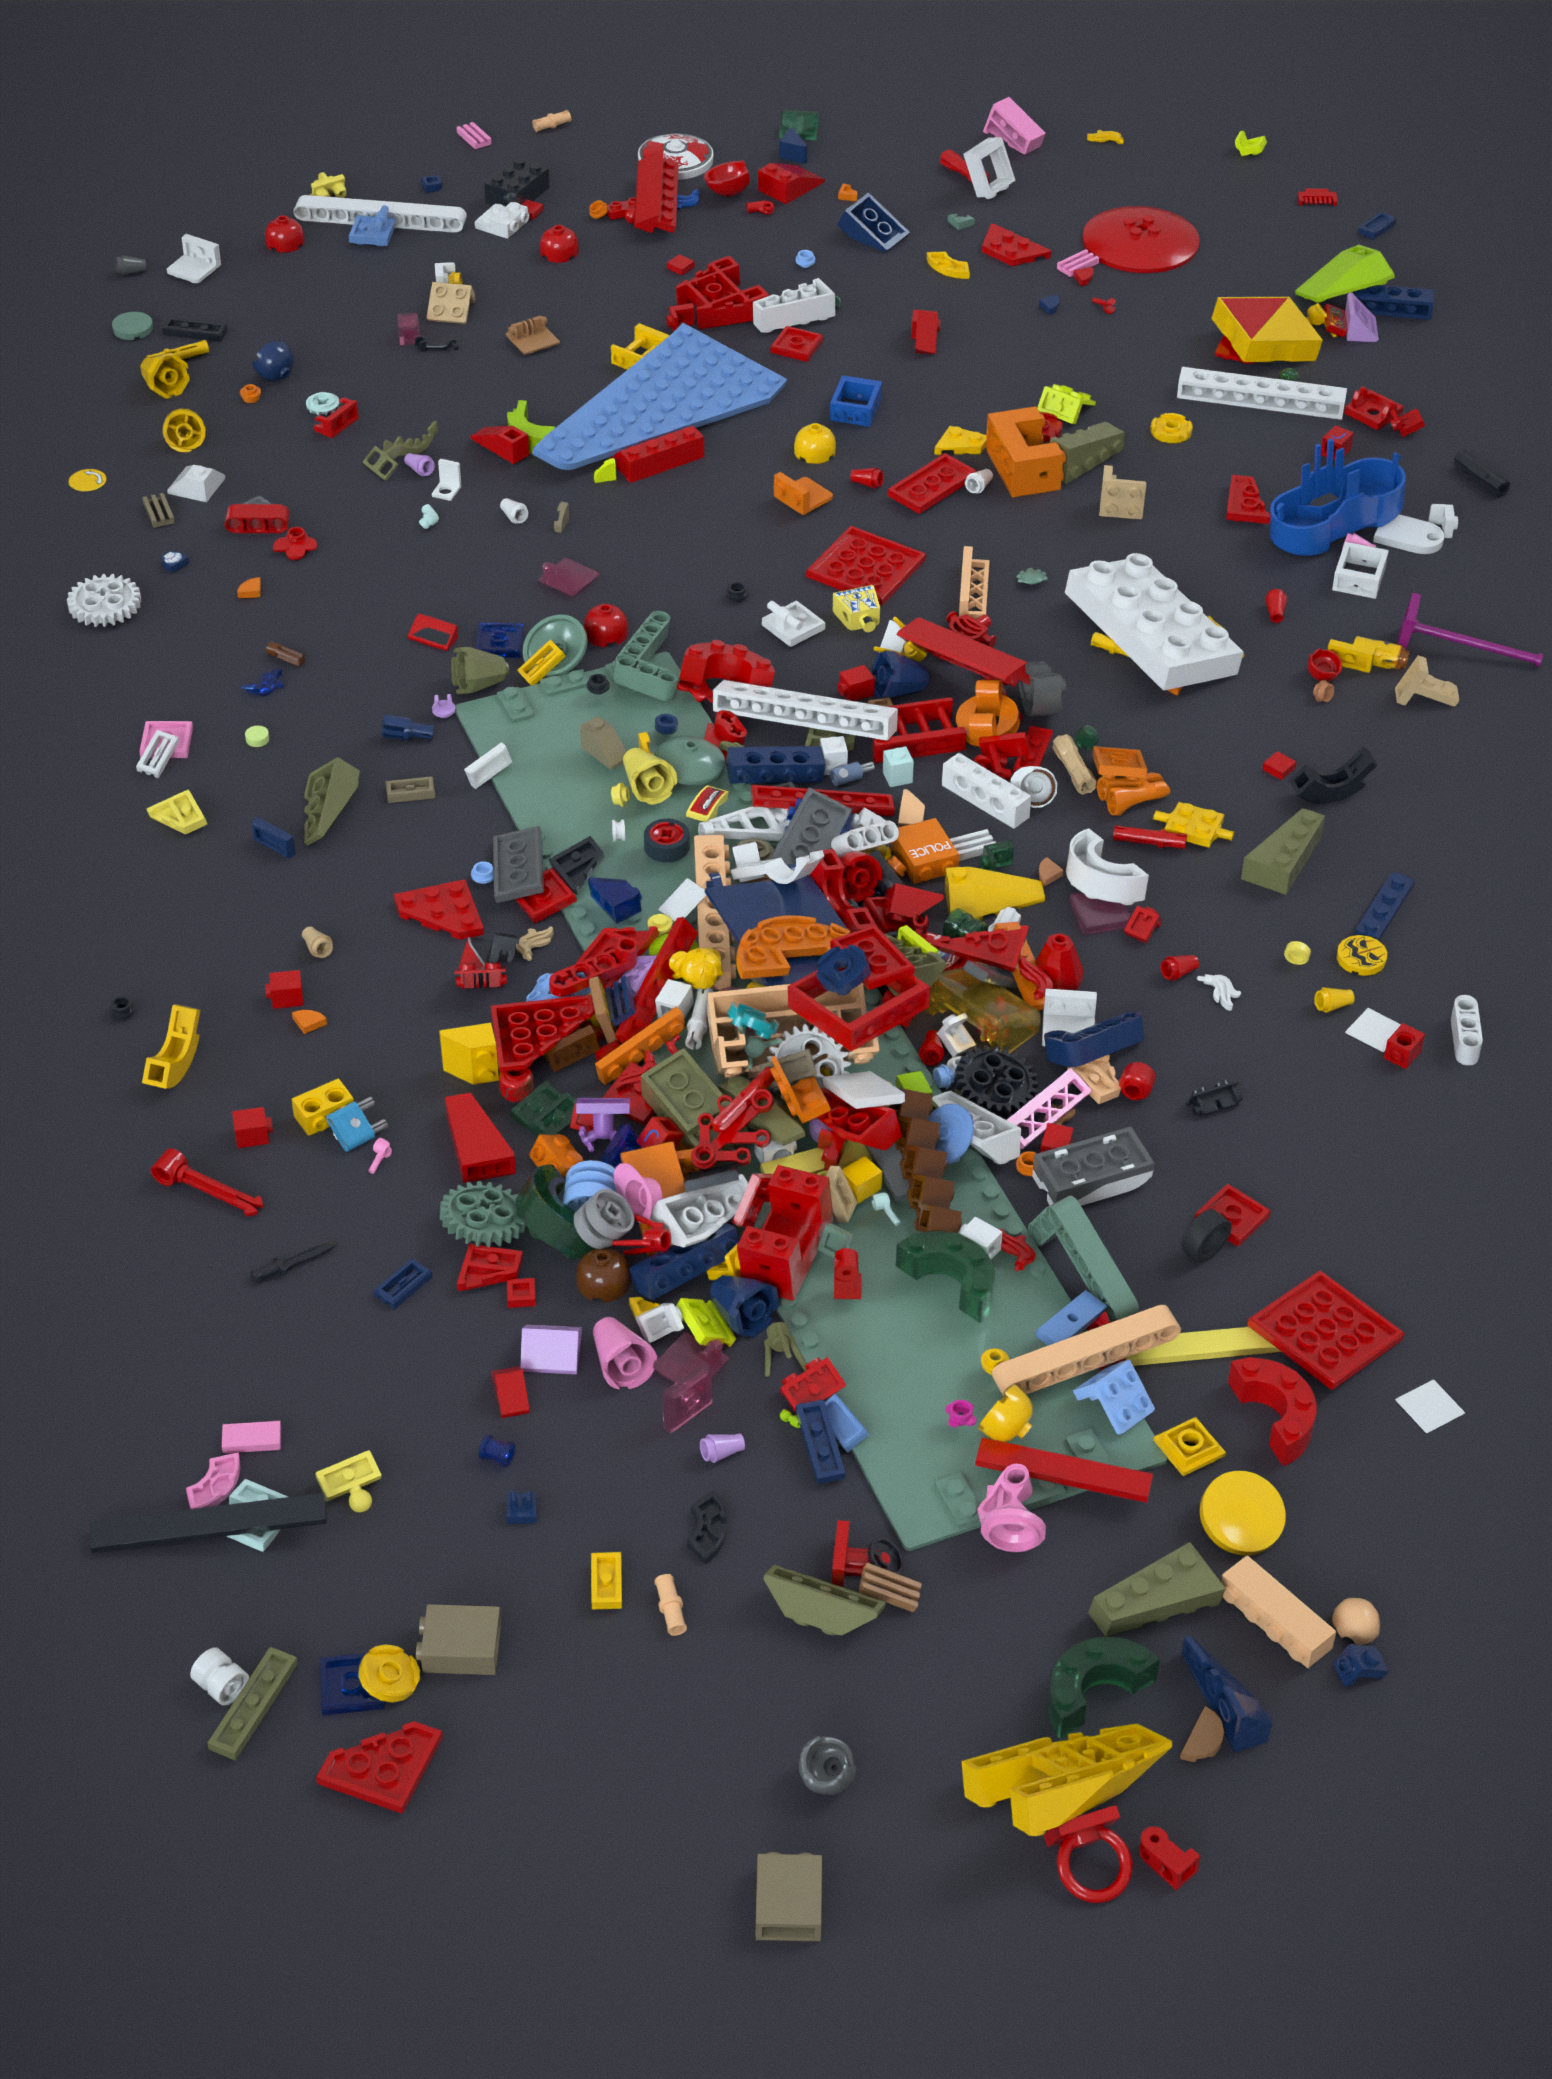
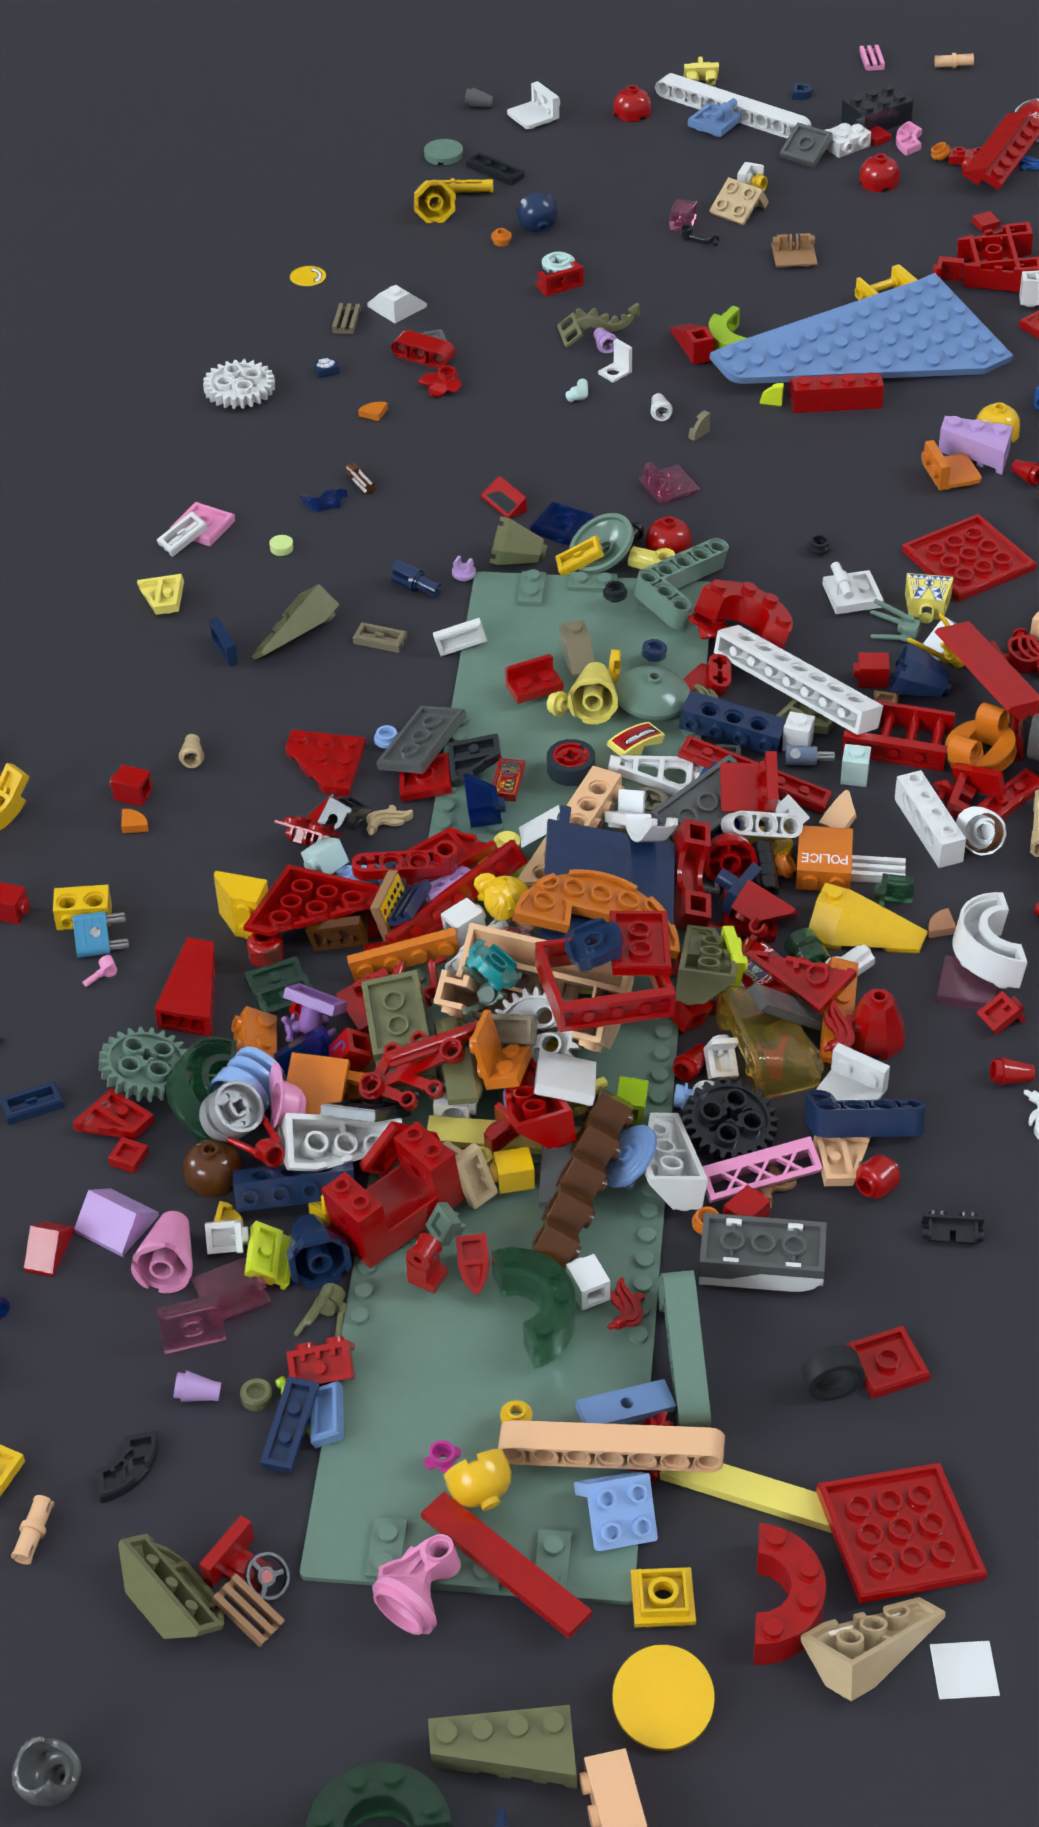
camera: 30 degrees right, 0 degrees up
(183, 430) = (413, 252): yellow cylinder -> none
(475, 233) = (806, 145): none -> dark grey tile
(510, 988) = (325, 855): none -> light aqua brick
(558, 206) = (907, 138): none -> bright pink tile
(582, 781) = (532, 679): none -> red bracket
(606, 648) = (642, 558): none -> light yellow piece
(618, 830) = (531, 737): white bush -> none
(620, 867) = (509, 778): none -> tile
(771, 1432) = (256, 1394): none -> olive tile
(816, 461) = (980, 440): none -> lavender wedge
(845, 806) = (750, 785): none -> red bracket
(860, 639) = (908, 625): none -> sand green plant
(878, 1260) = (473, 1260): none -> red plate
(881, 894) = (735, 884): none -> dark blue tile
(882, 1201) = (520, 1201): light aqua hand -> none
(1359, 1417) = (864, 1651): none -> tan wedge

